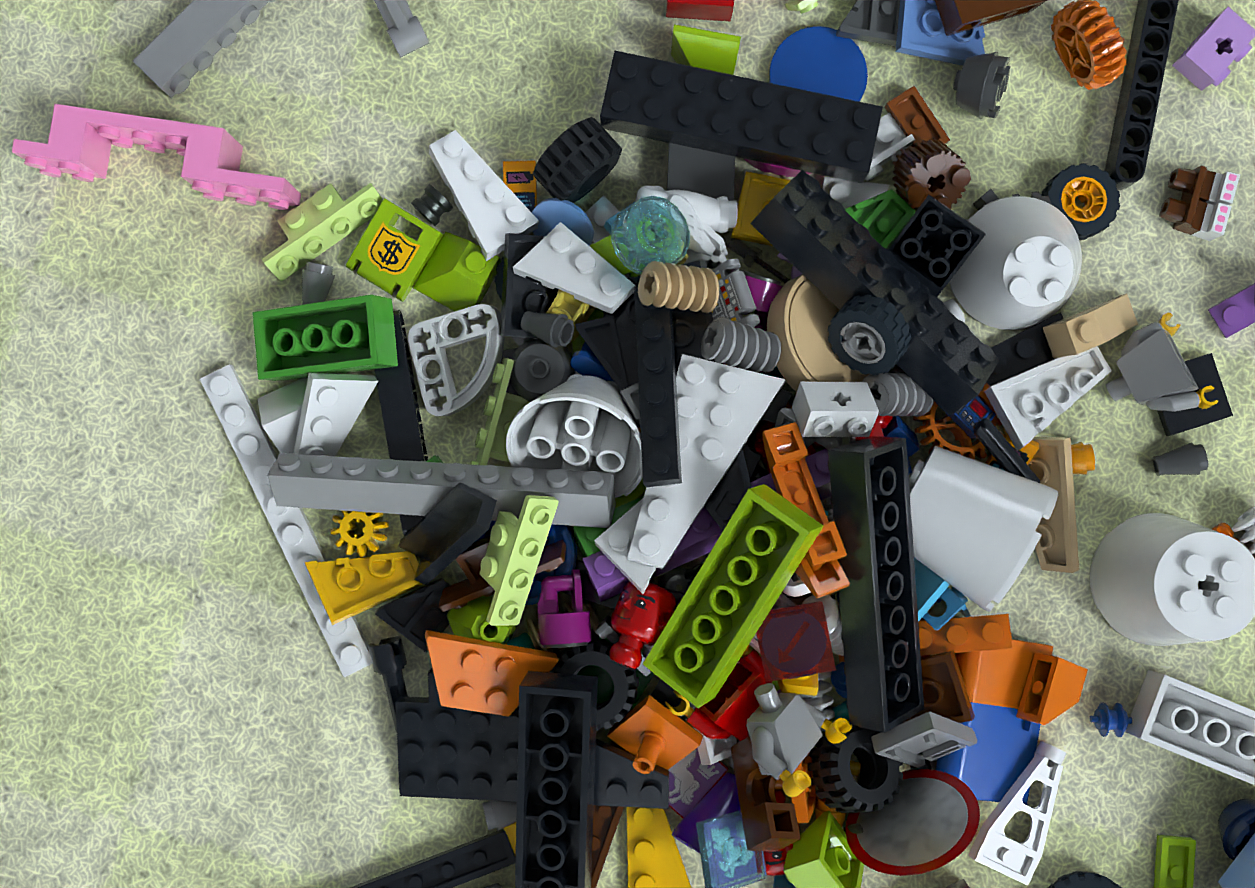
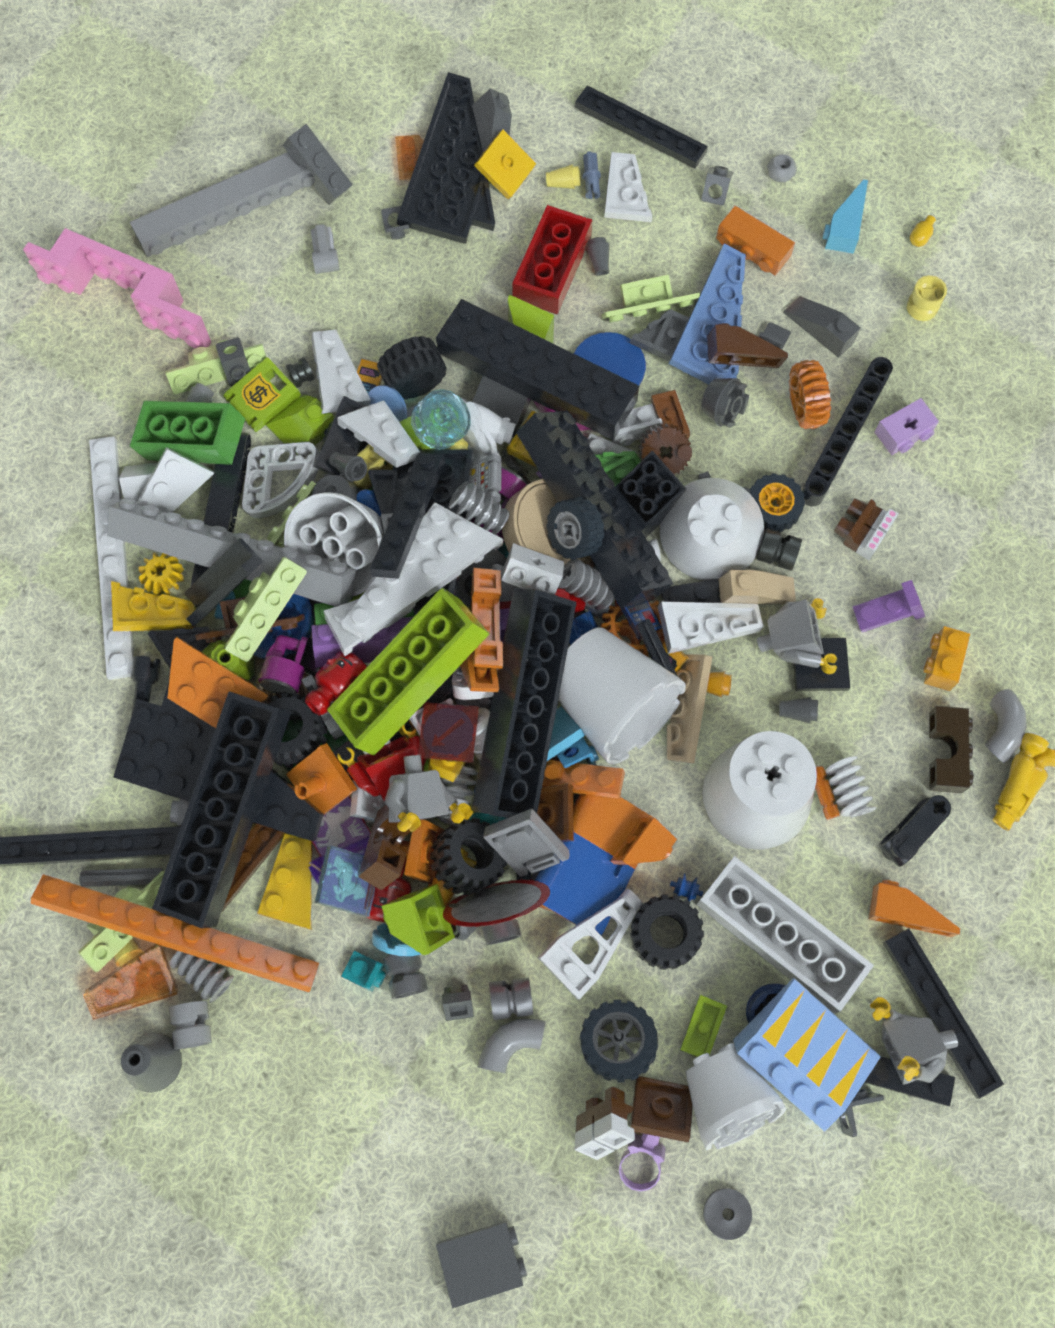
camera: 20 degrees right, 15 degrees down
(348, 222) = (233, 364): none -> dark grey bracket
(678, 287) = (448, 452): tan piece -> none
(1111, 264) = (779, 549): none -> pearl dark grey wheel
(1132, 787) = (686, 917): none -> black tyre

